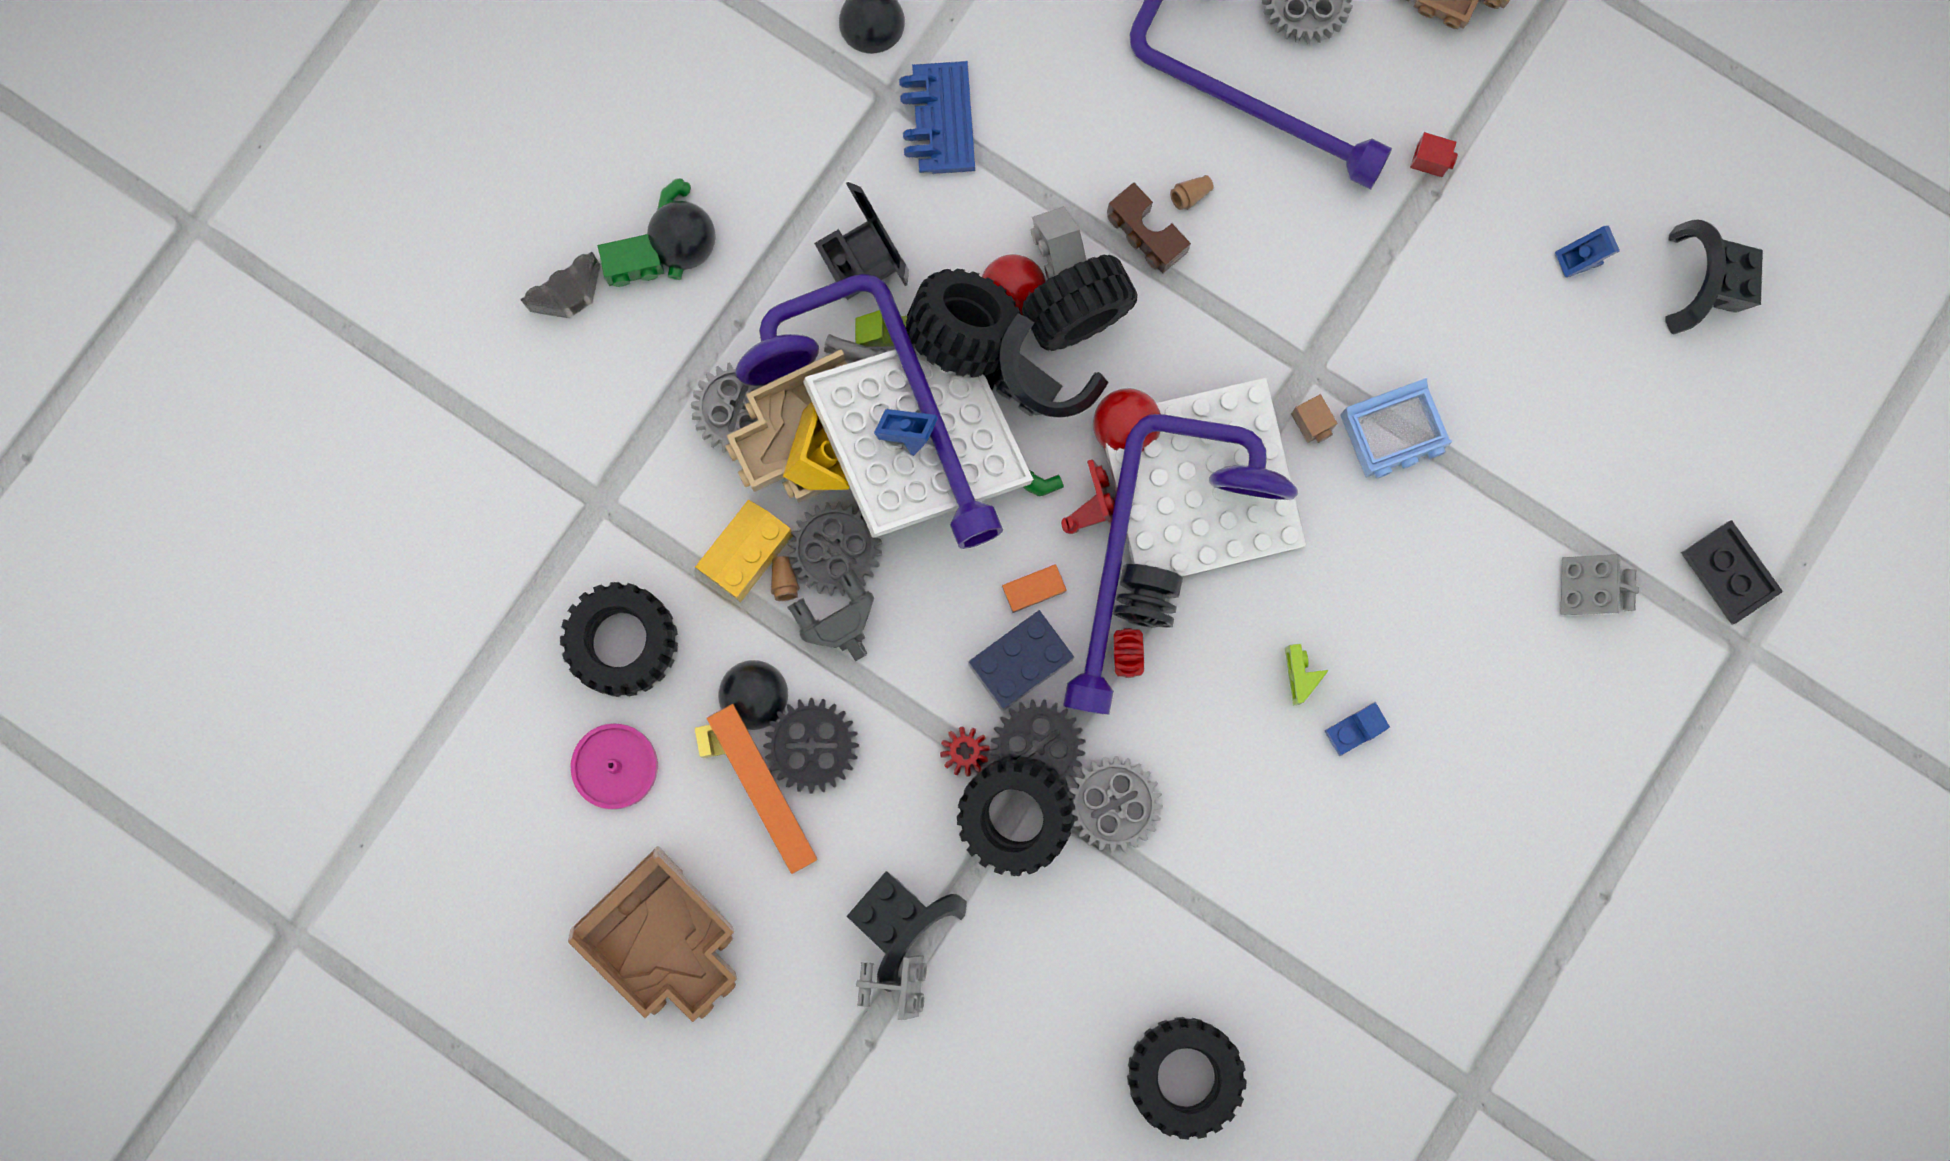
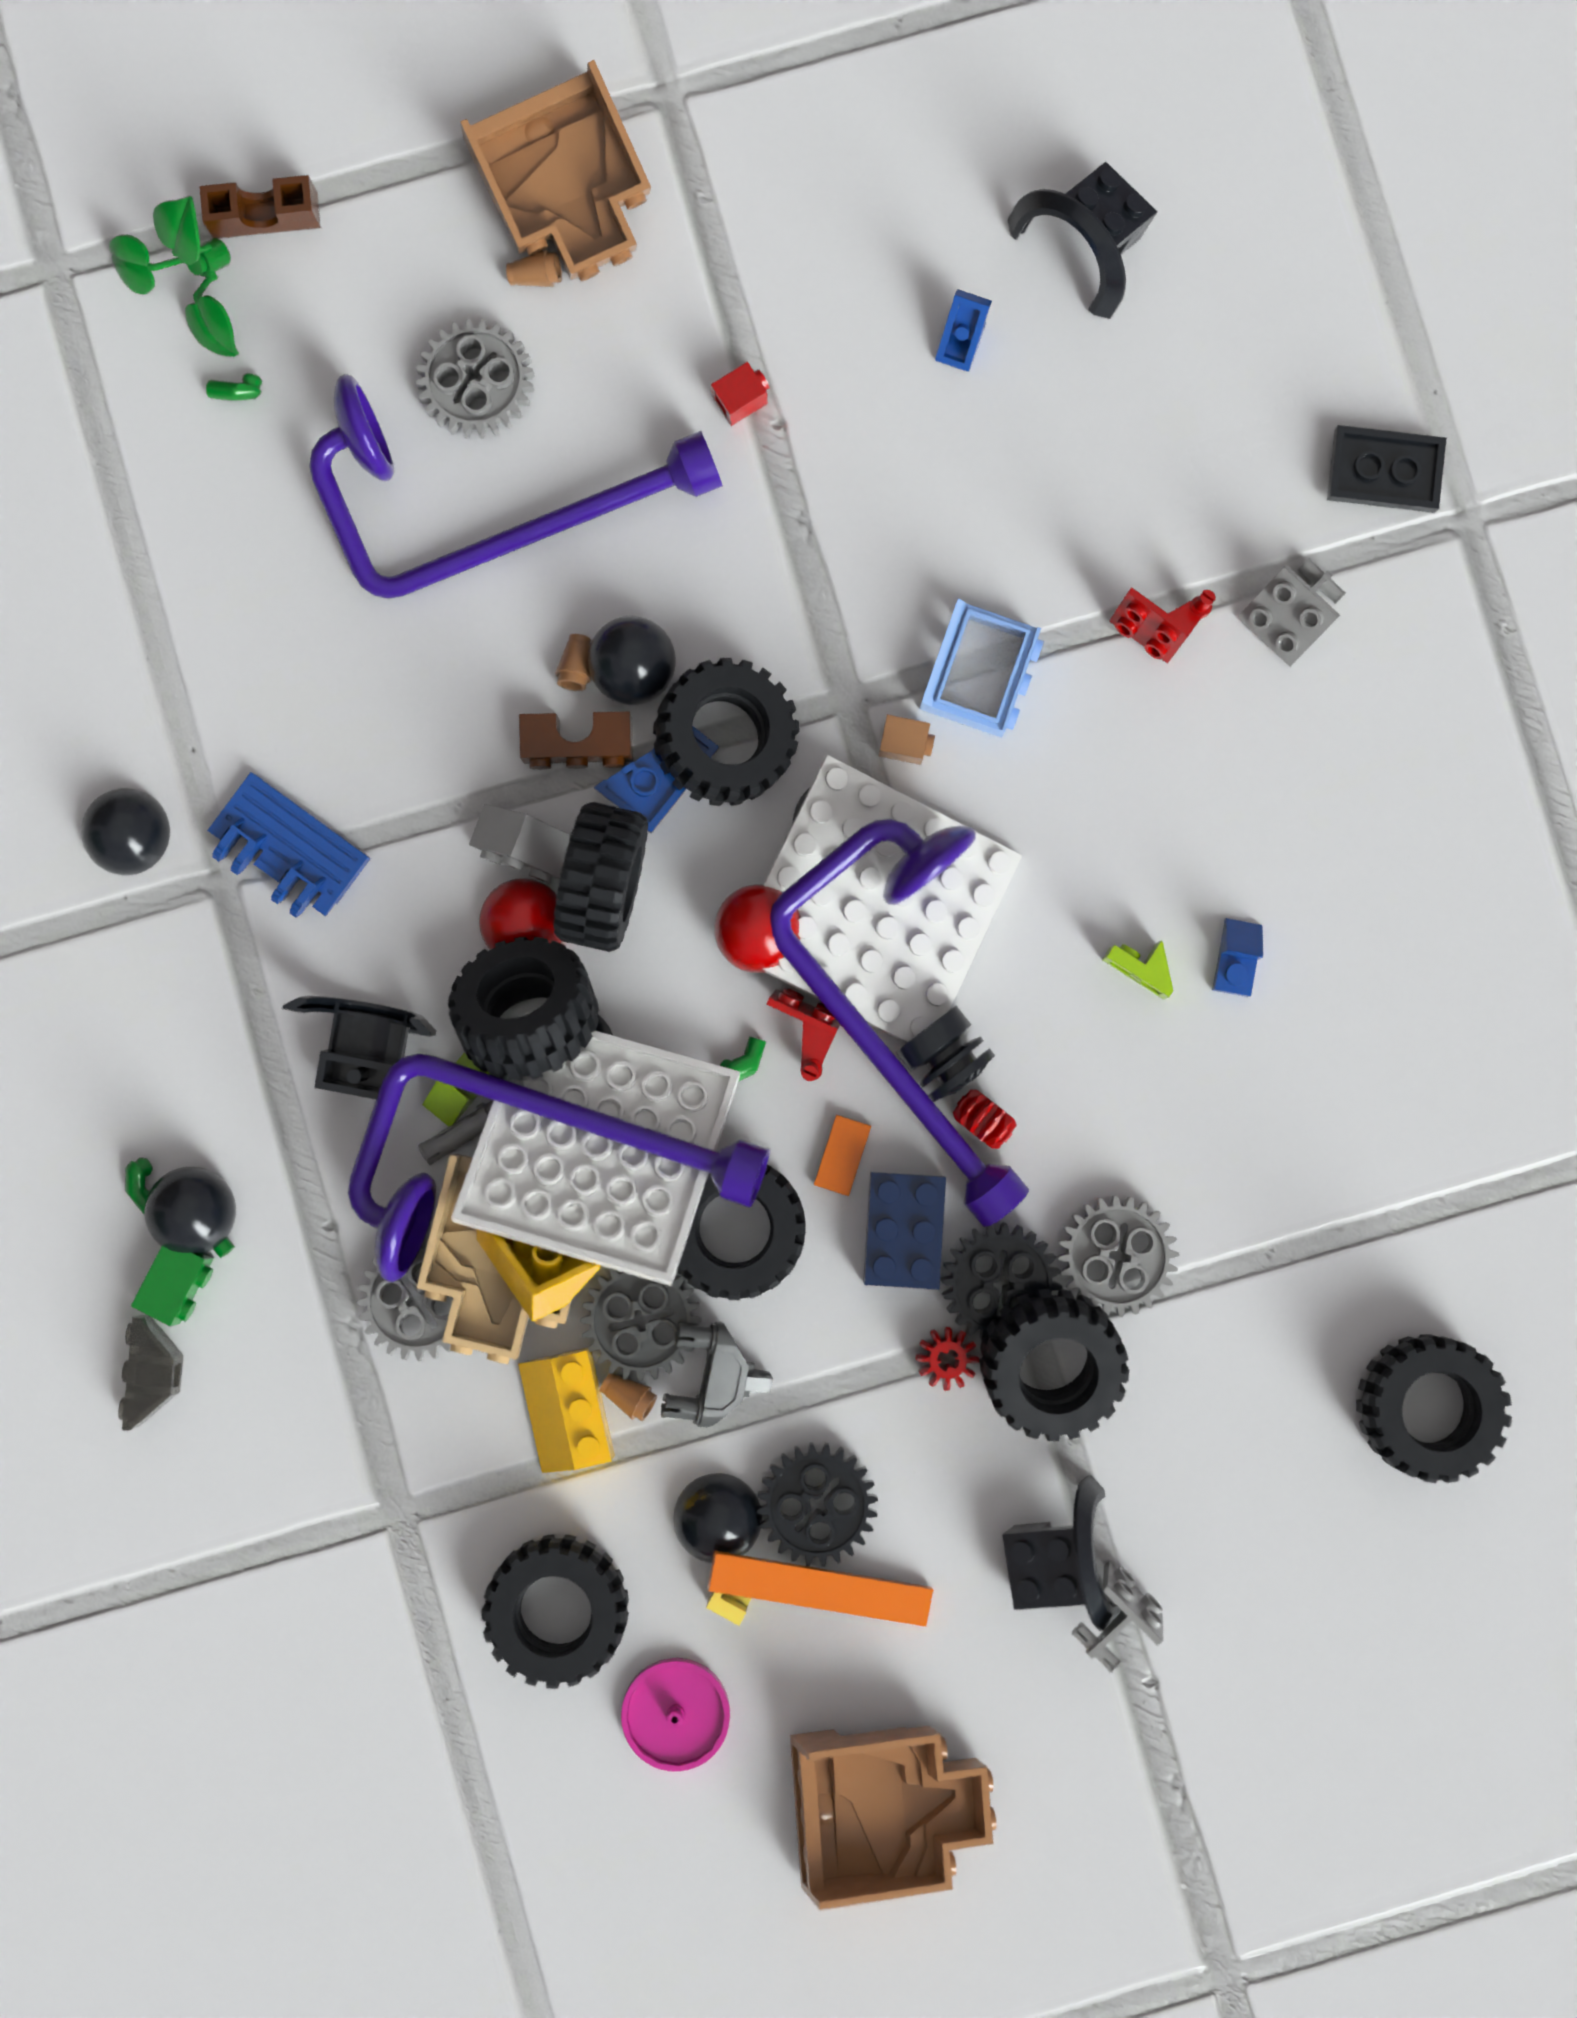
camera: 45 degrees left, 5 degrees up
(906, 427) = (588, 1161): blue slope -> none
(930, 596) = (769, 1266): none -> black tyre
(1033, 387) = (647, 991): black piece -> none
(1168, 295) = (645, 787): none -> blue wing
(1222, 220) = (631, 660): none -> black piece
(1259, 292) = (752, 694): none -> black tyre
(1512, 510) = (1154, 628): none -> red plate

